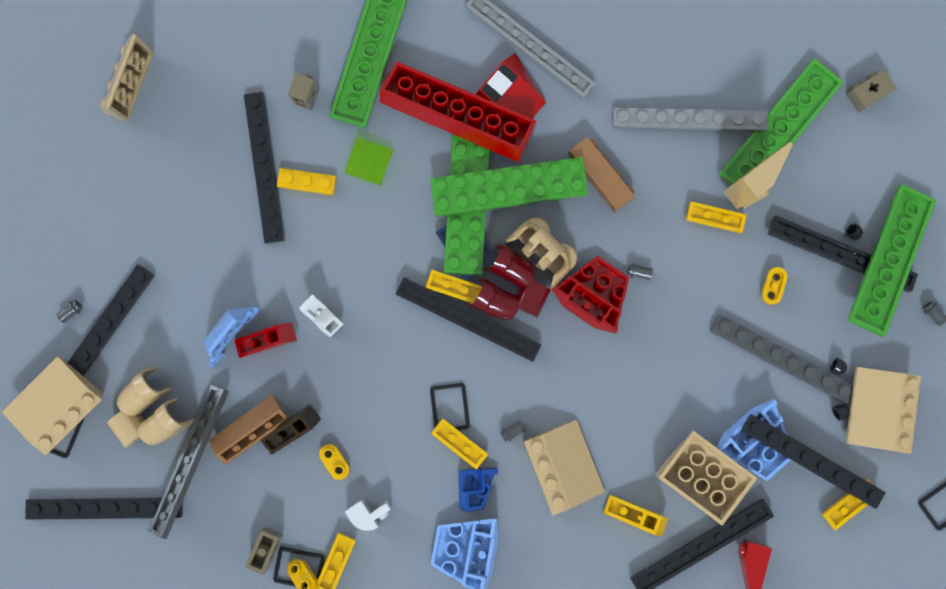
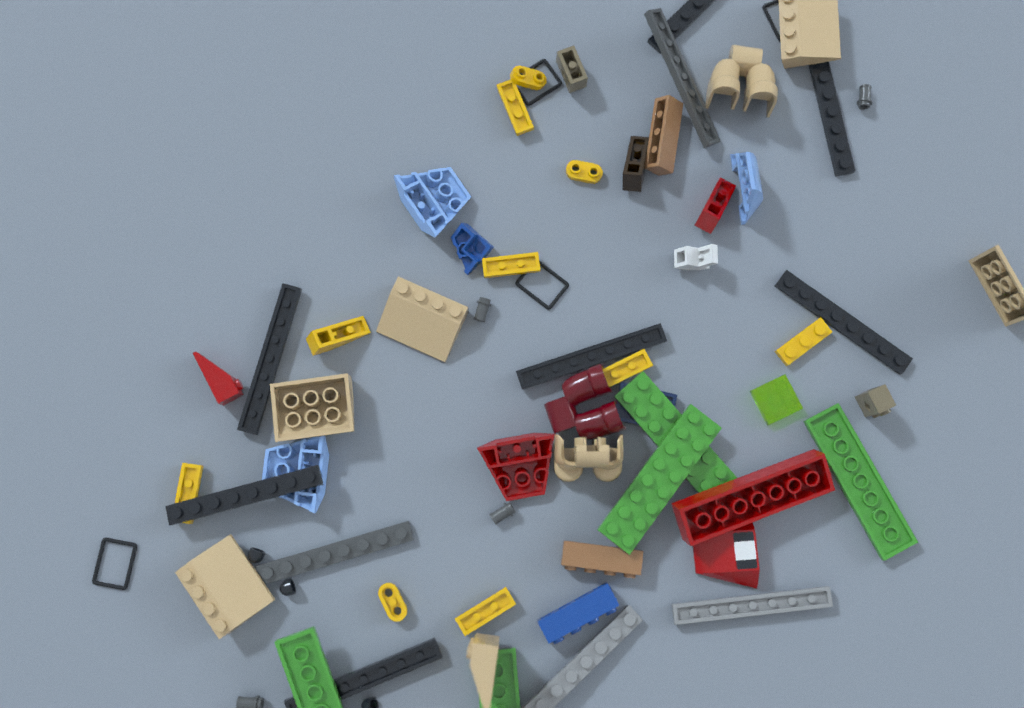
camera: 135 degrees right, 5 degrees down
(364, 518) = (526, 154): white brick -> none
(654, 154) = (577, 613): none -> blue brick

